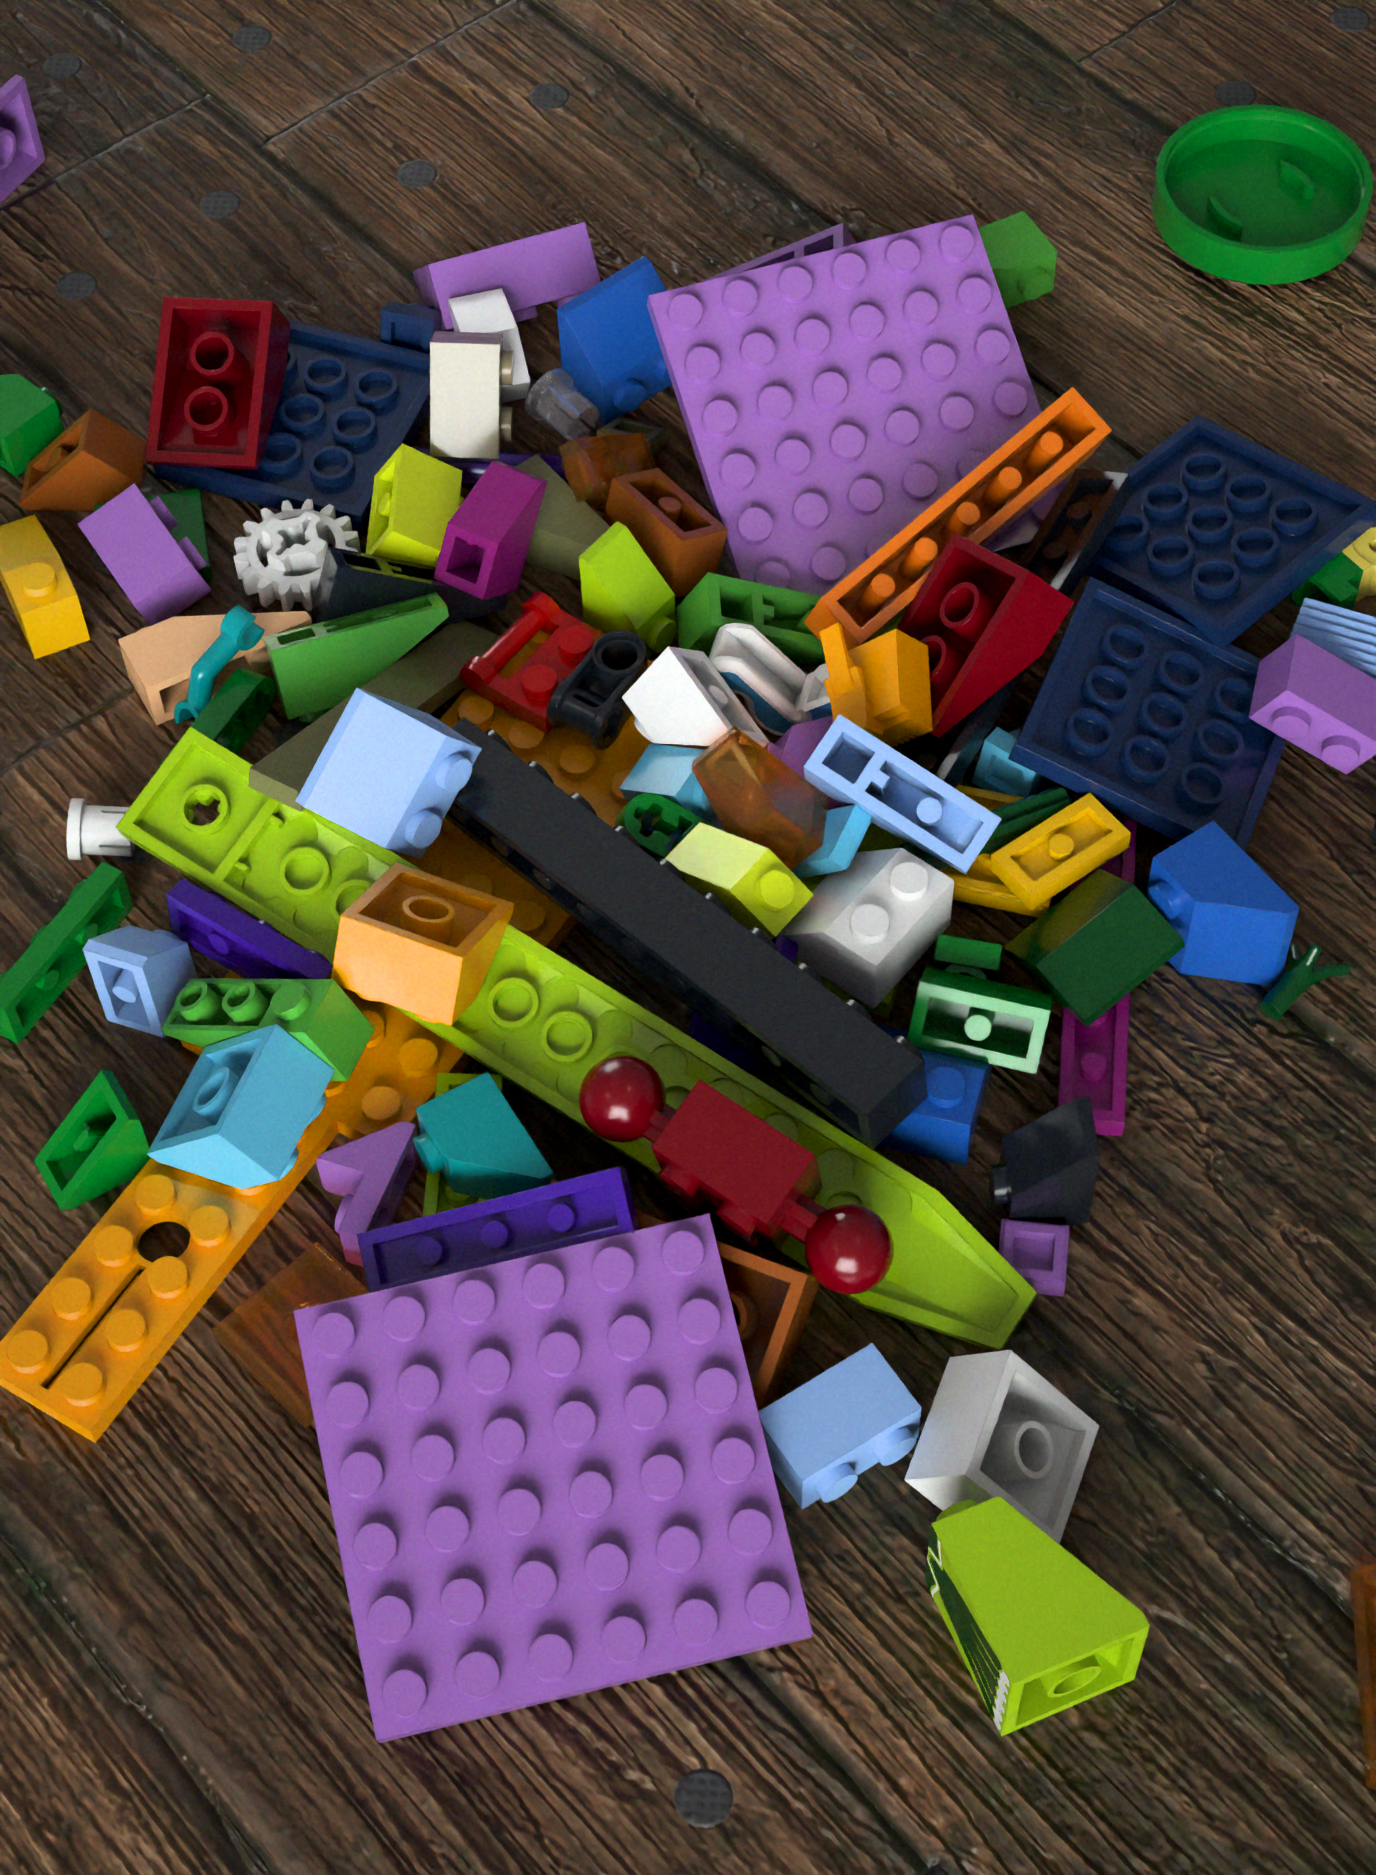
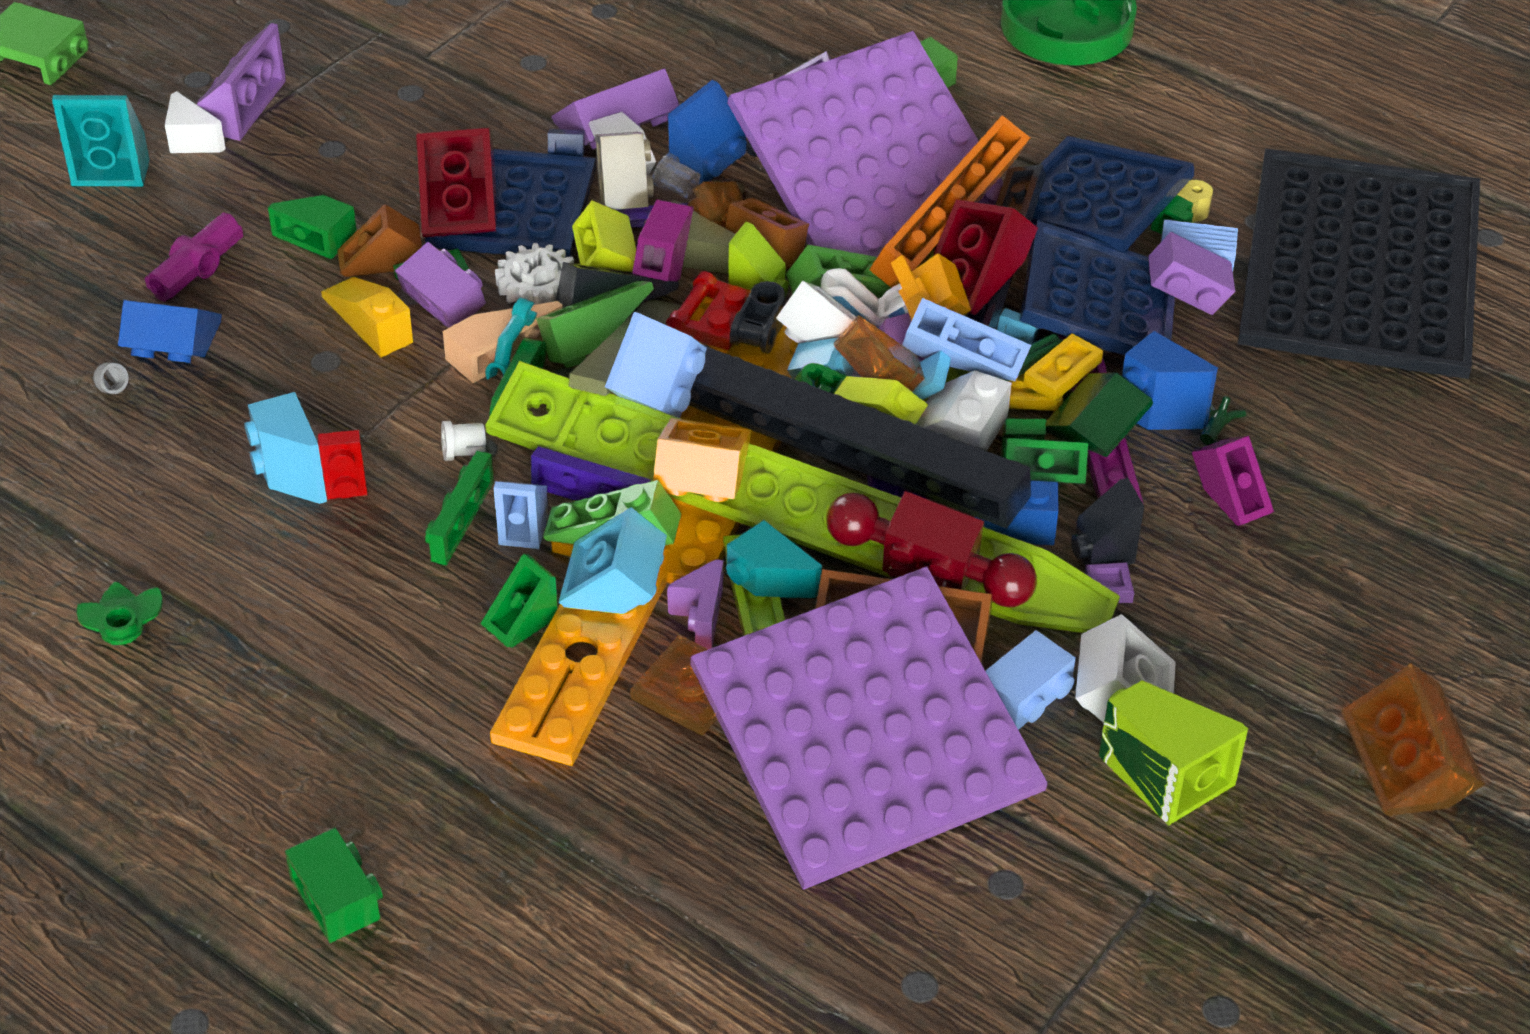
camera: 15 degrees left, 10 degrees down
(499, 1230) = (799, 596): dark purple plate -> none
(1288, 1099) = (1233, 479): none -> magenta slope

